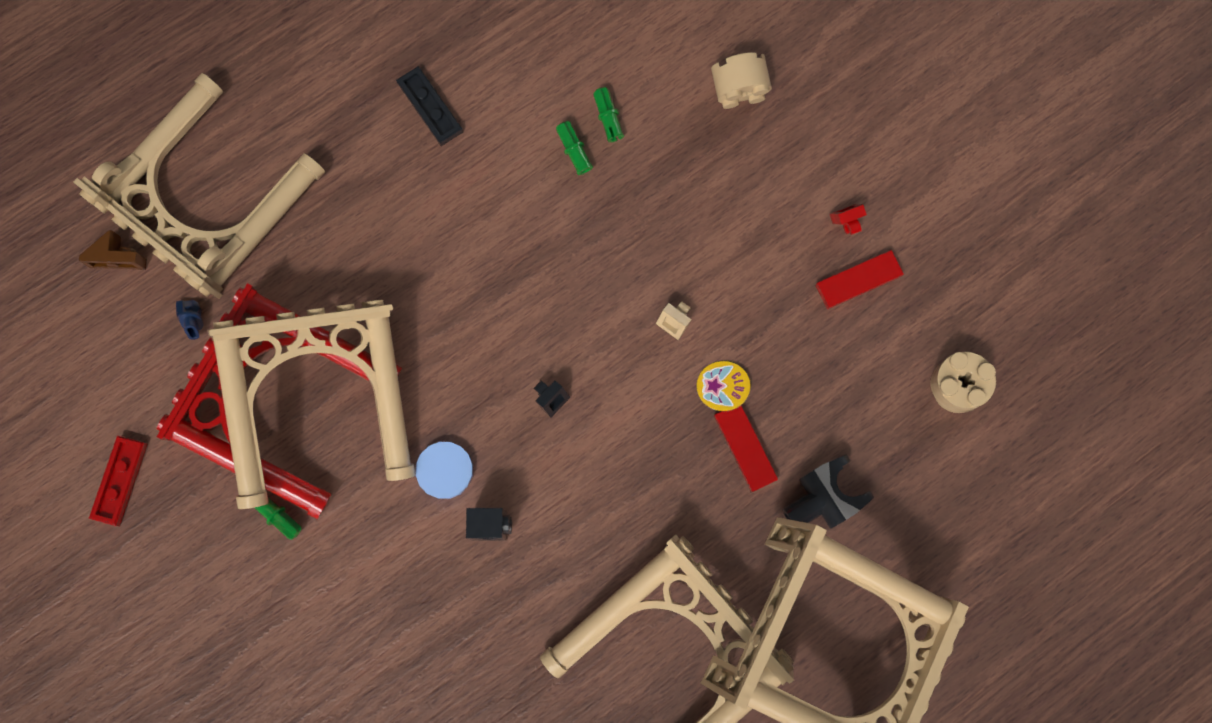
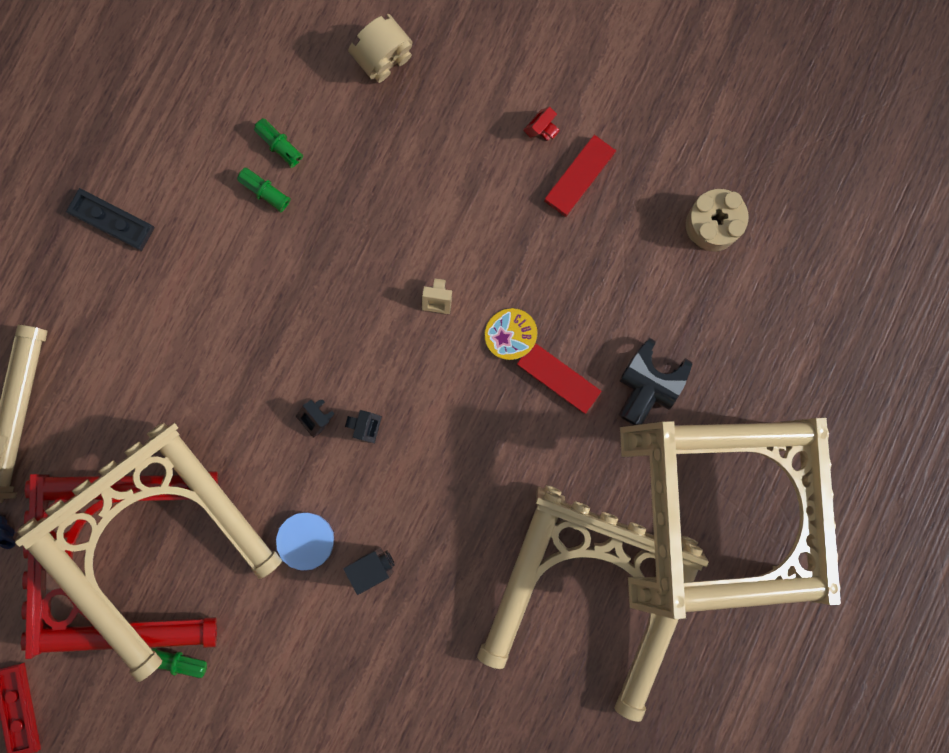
camera: 30 degrees left, 5 degrees up
(509, 366) = (313, 418): none -> black tile

